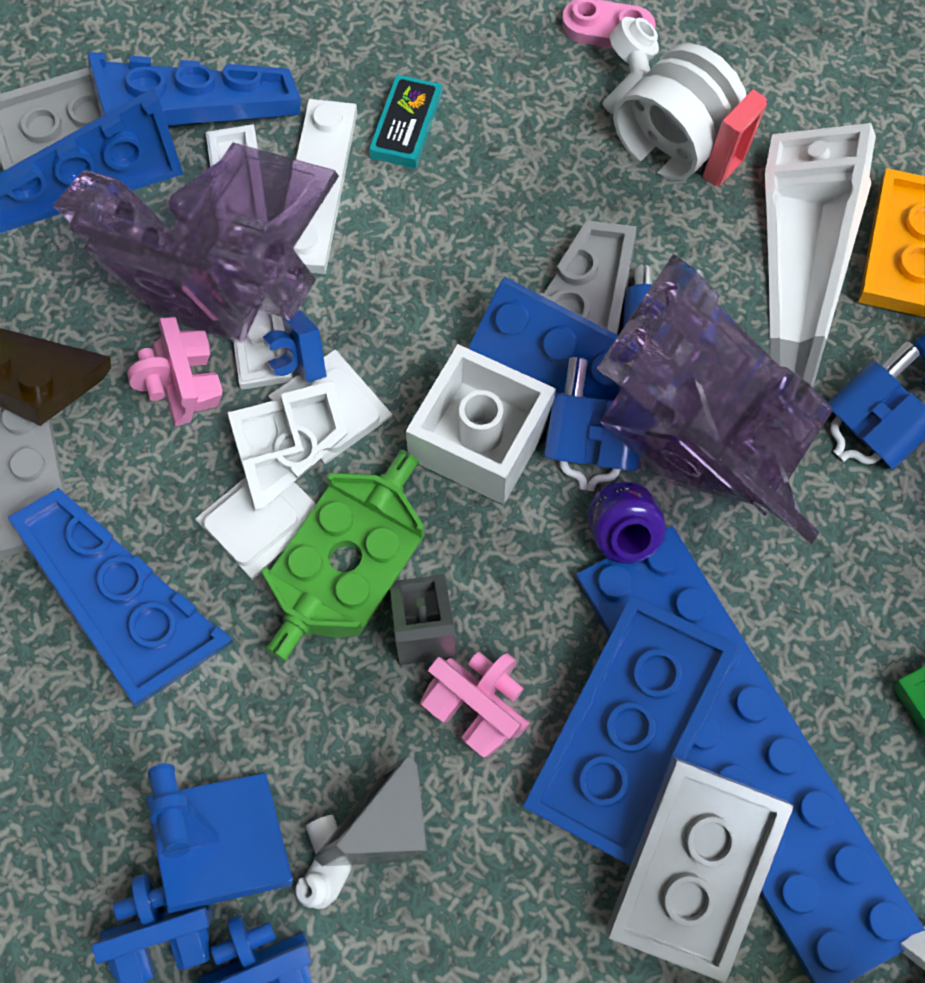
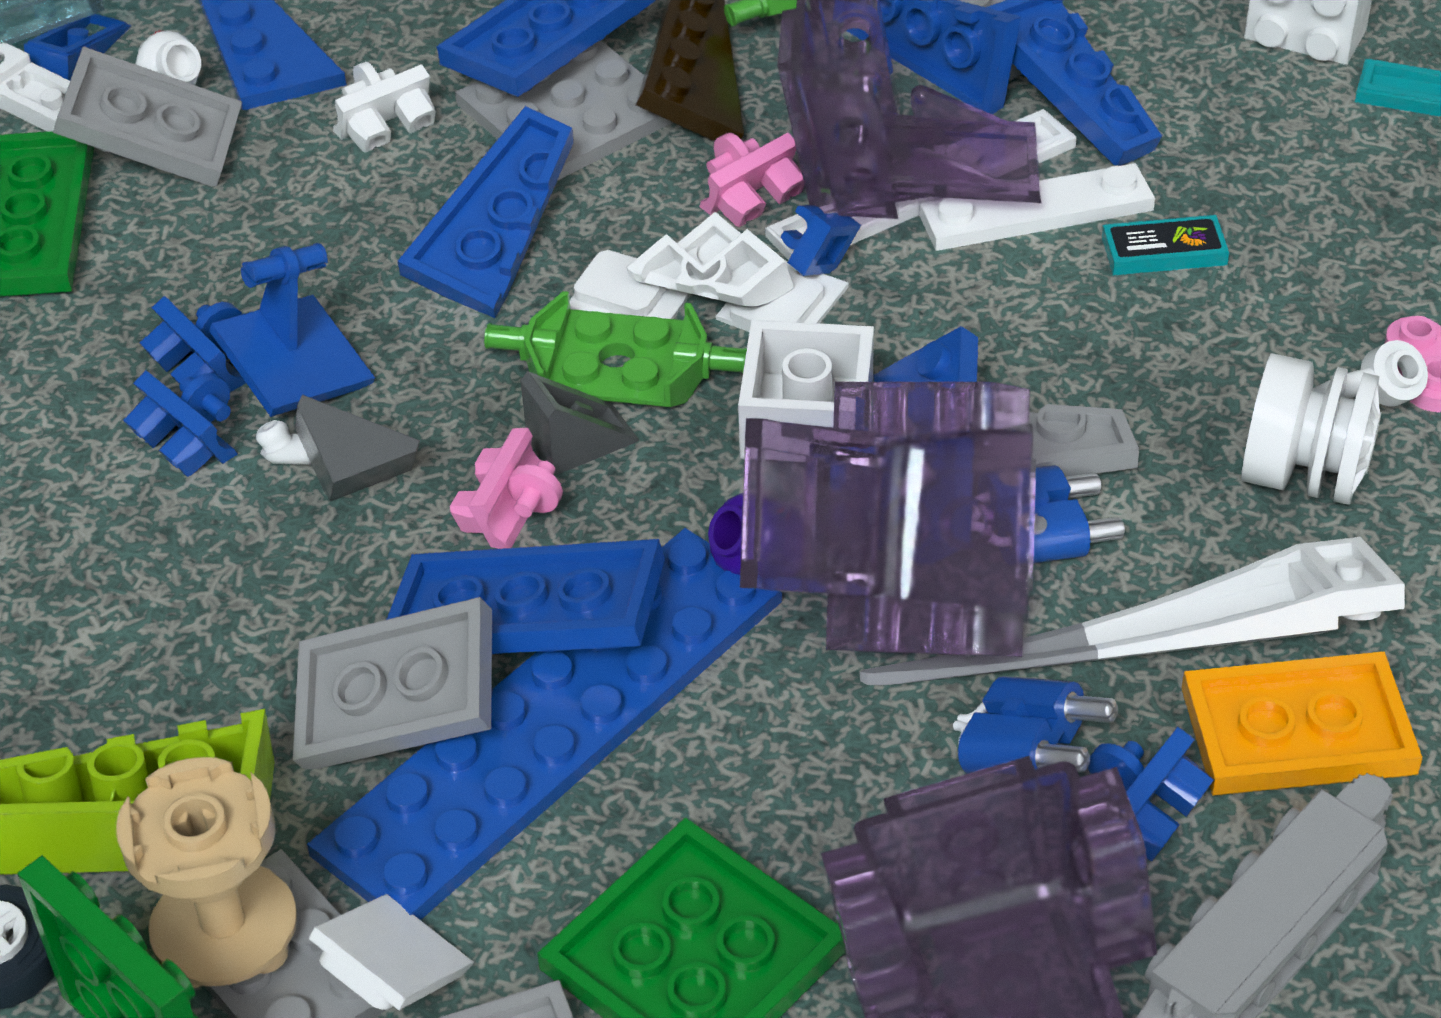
camera: 70 degrees right, 20 degrees down
(735, 138) = (1304, 482): coral tile -> none

